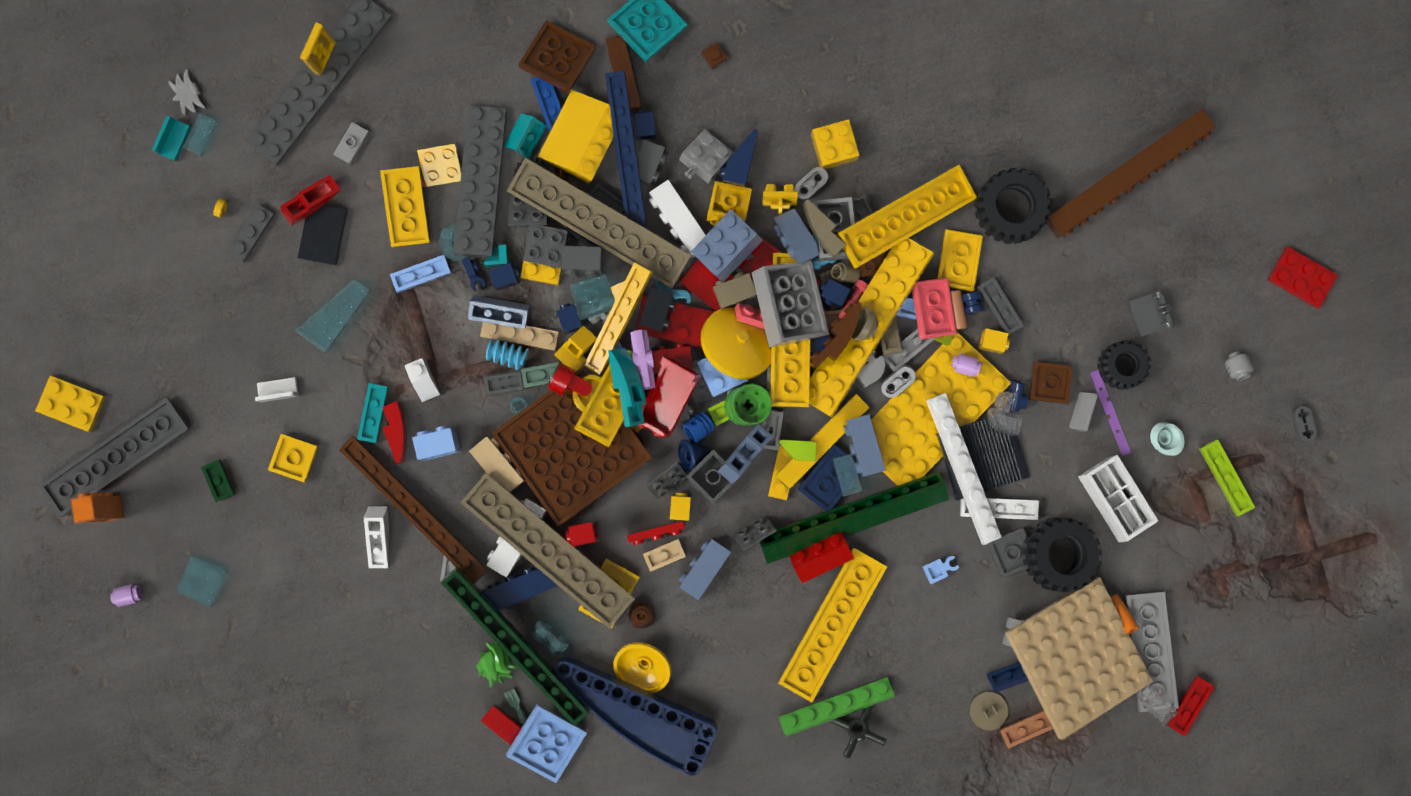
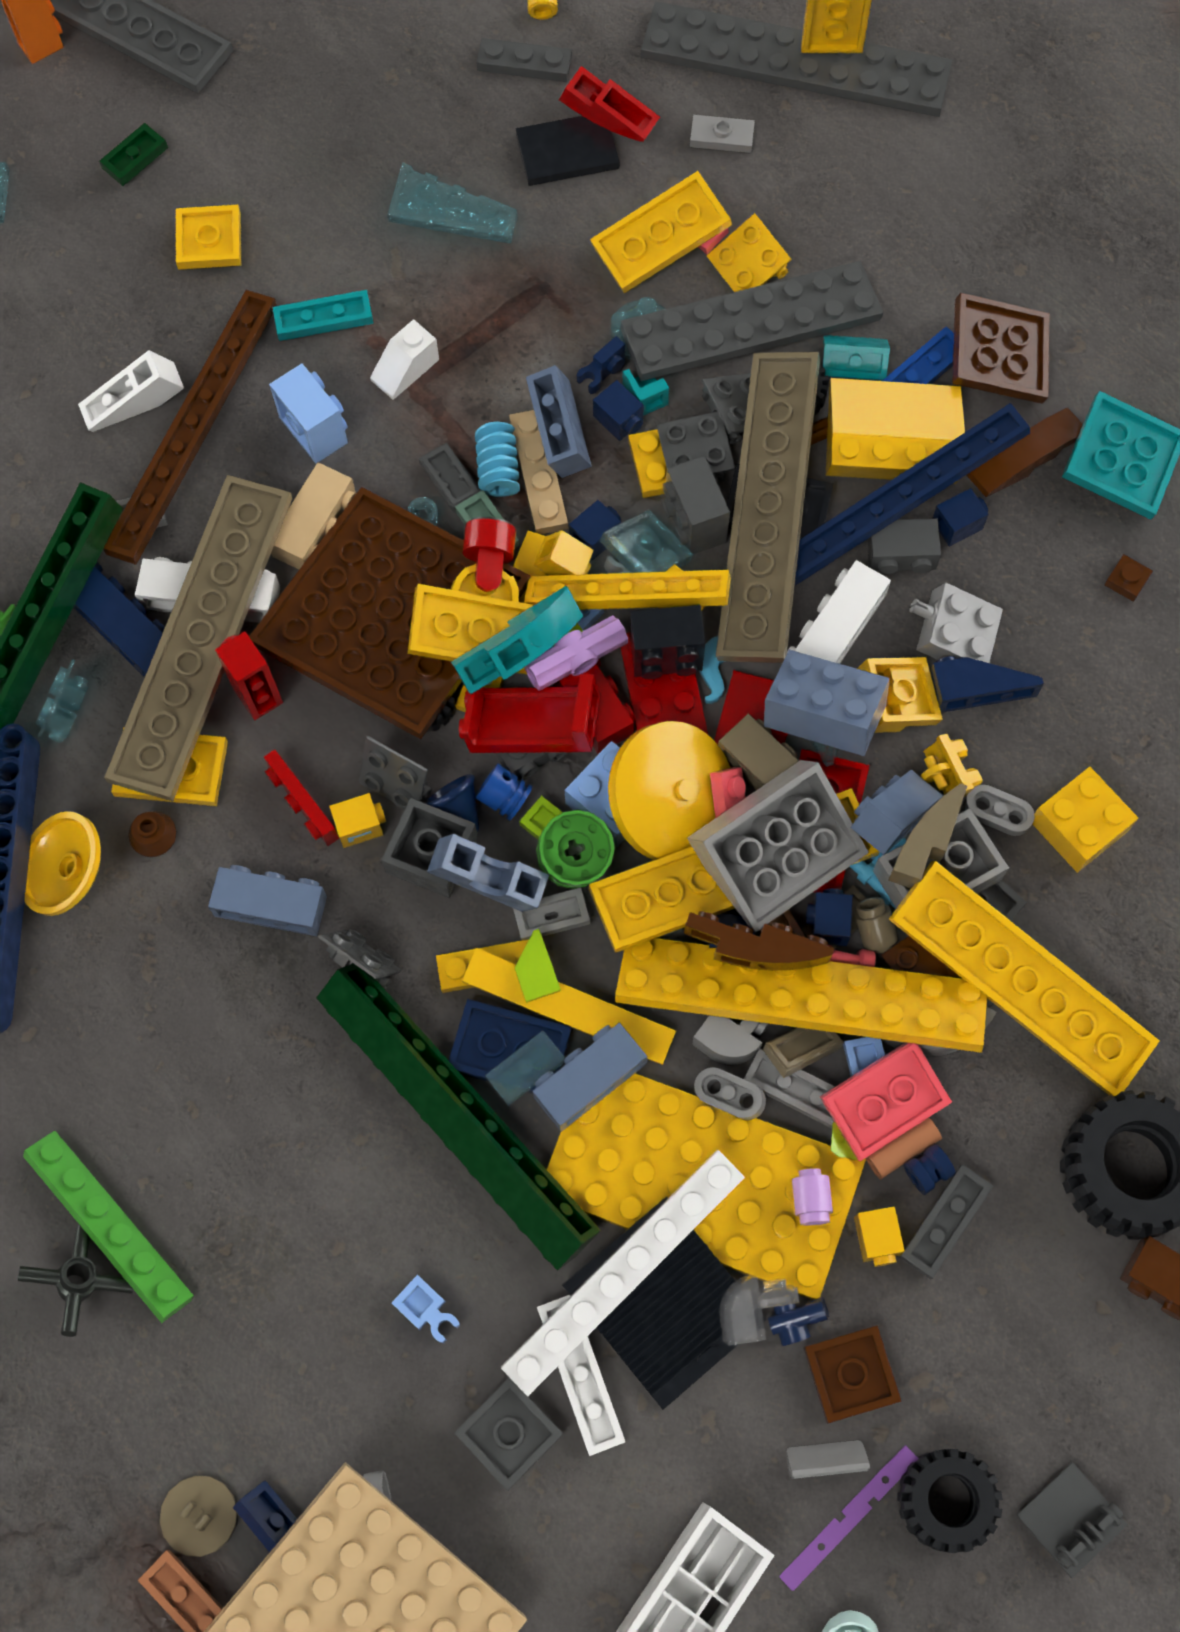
camera: 70 degrees right, 15 degrees down
(277, 390) = (303, 179): white panel -> none
(396, 430) = (317, 353): red slope -> none
(420, 273) = (568, 296): light blue plate -> none
(664, 555) = (267, 827): tan plate -> none
(821, 557) = (363, 1084): red brick -> none
(832, 625) = (252, 1157): yellow plate -> none
(866, 325) = (799, 981): dark tan piece -> none
(960, 259) = (995, 1117): yellow tile -> none
(1085, 554) = (575, 1570): black tyre -> none

